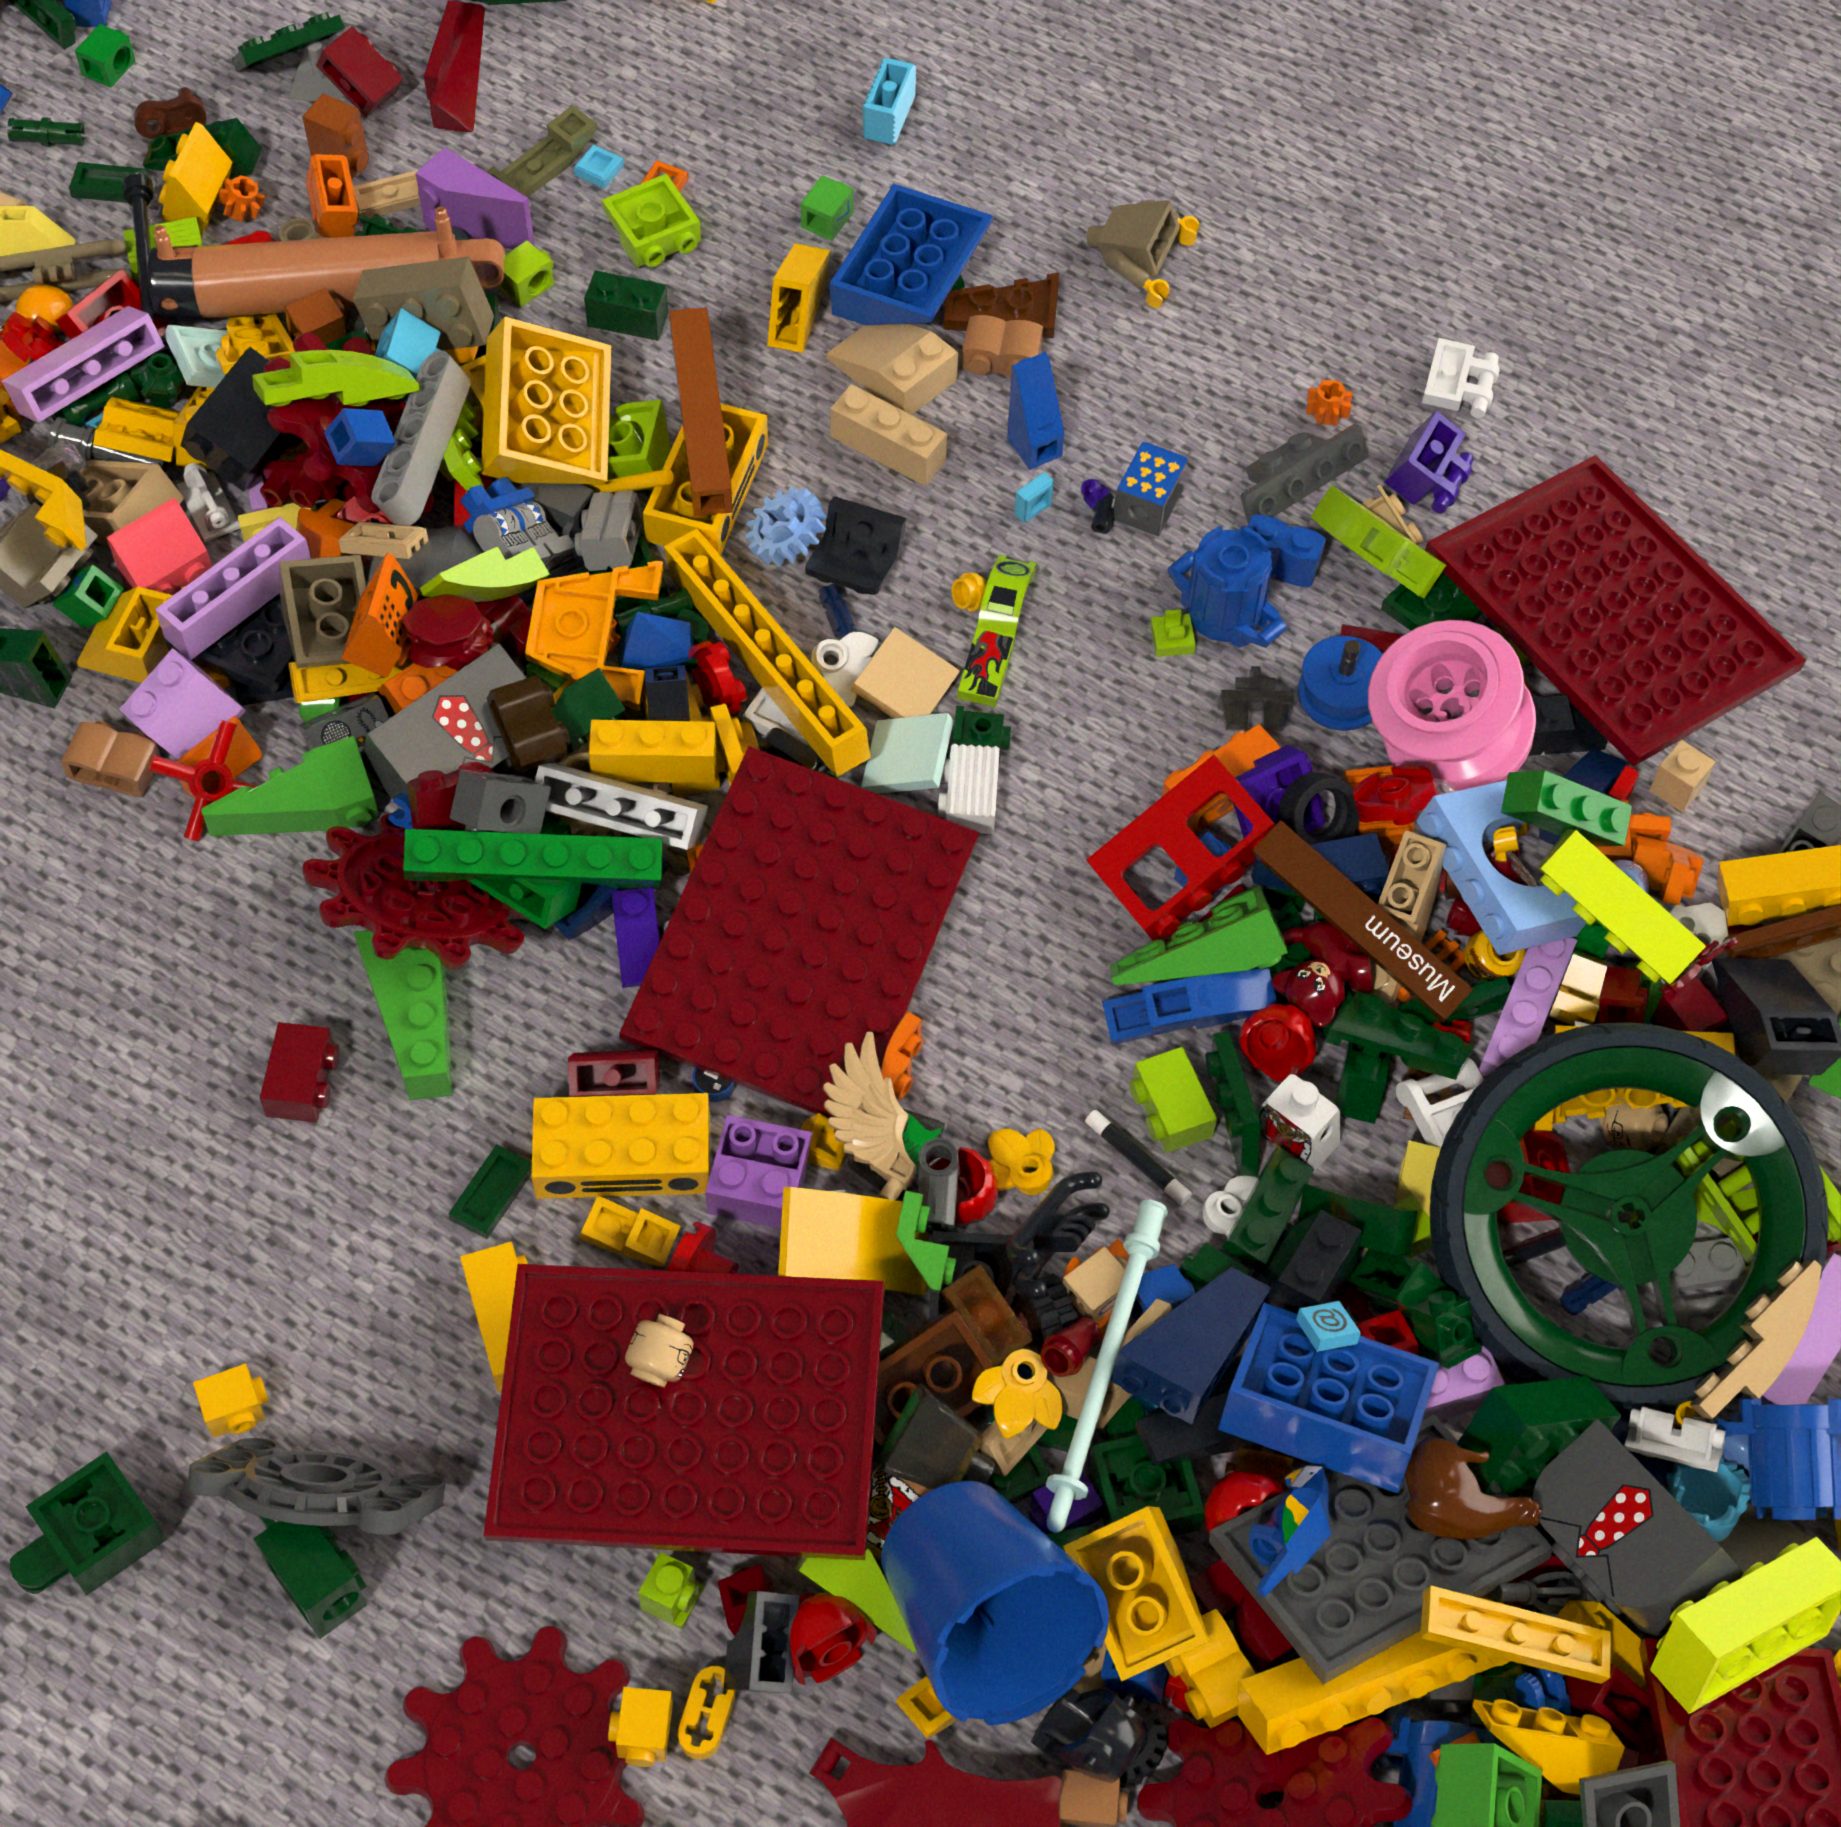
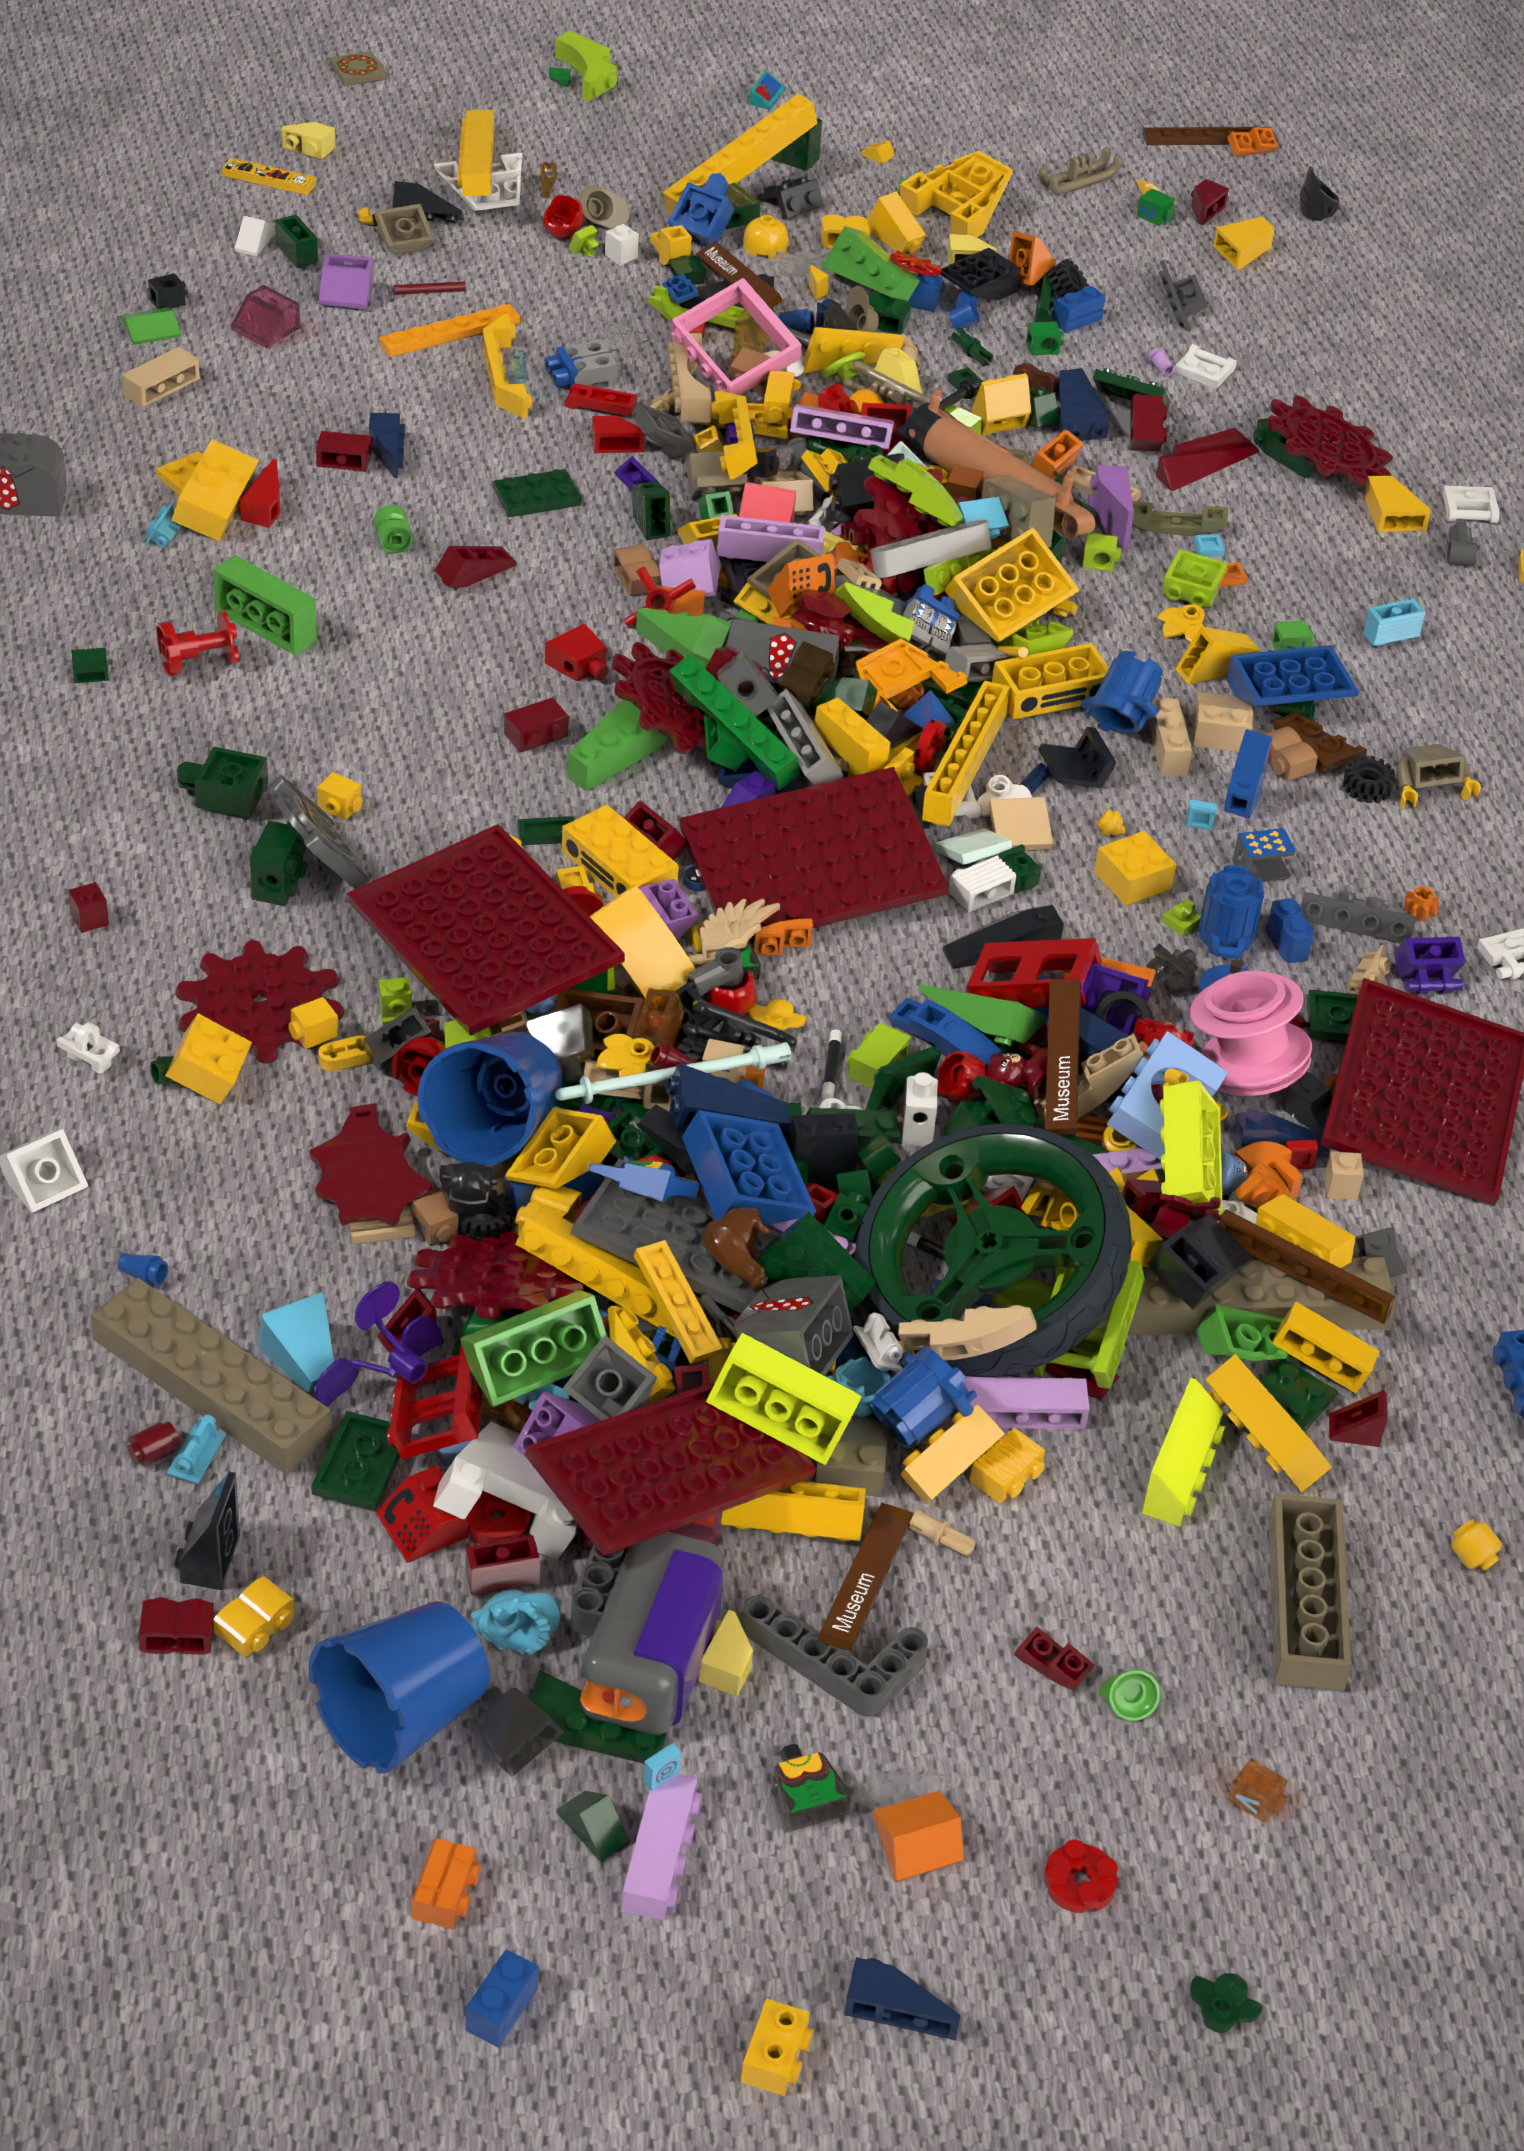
camera: 50 degrees right, 15 degrees down
(210, 933) = (577, 654): none -> red torso
(241, 198) = (1016, 430): orange gear -> none
(264, 108) = (1080, 407): none -> dark blue slope
(336, 130) = (1094, 433): dark orange brick -> none
(359, 437) = (897, 519): blue brick -> none
(626, 305) = (1127, 597): dark green brick -> none
(659, 1351) = (498, 888): tan head -> none
(701, 412) = (1079, 643): dark orange brick -> none
(708, 286) = (1182, 621): none -> yellow plate
(786, 526) = (1059, 727): light blue gear -> none
(811, 429) = (1125, 694): none -> blue container
(928, 1257) = (673, 965): bright green slope -> none
(995, 631) = (1084, 850): piece -> none
(1068, 820) = (1018, 926): none -> black wedge
(1070, 622) = (1135, 868): none -> yellow brick
(1101, 321) = (1359, 771): none -> black tyre
(1102, 504) = (1227, 852): arm -> none
(1328, 1326) = (787, 1149): medium azure tile -> none
(1377, 541) = (1340, 964): lime slope -> none
(1562, 804) = (1235, 1101): green brick -> none

